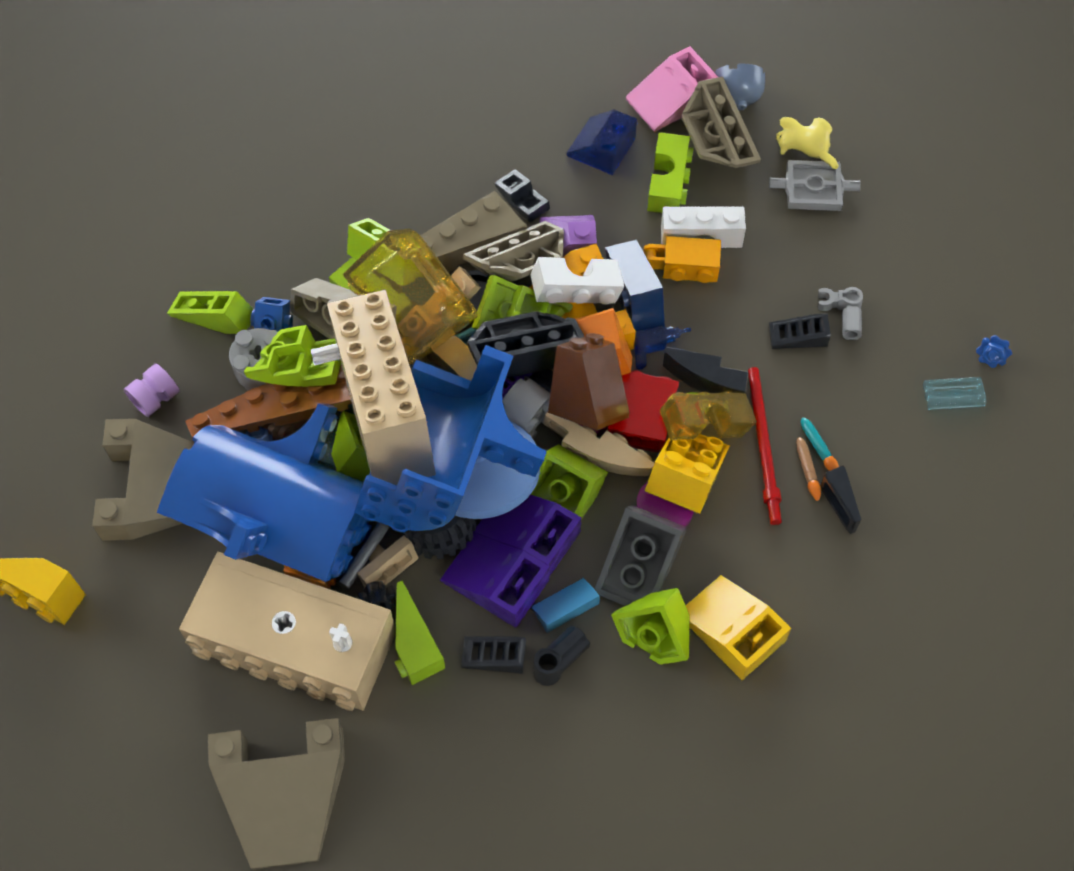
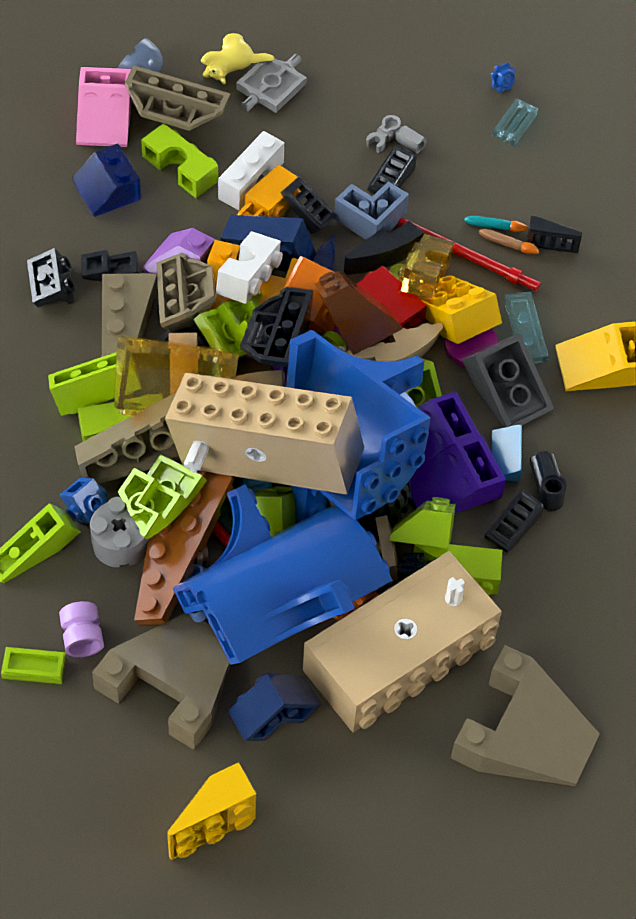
camera: 60 degrees left, 5 degrees down
(106, 381) = (33, 665): none -> lime tile
(165, 568) = (271, 703): none -> dark blue brick
(422, 582) = (427, 525): none -> lime slope
(475, 165) = (50, 278): none -> black bracket
(656, 625) = (570, 405): lime slope -> none
(693, 310) = (320, 207): none -> black slope
(721, 539) = (525, 321): none -> clear light blue tile
(736, 344) = (368, 213): none -> sand blue brick

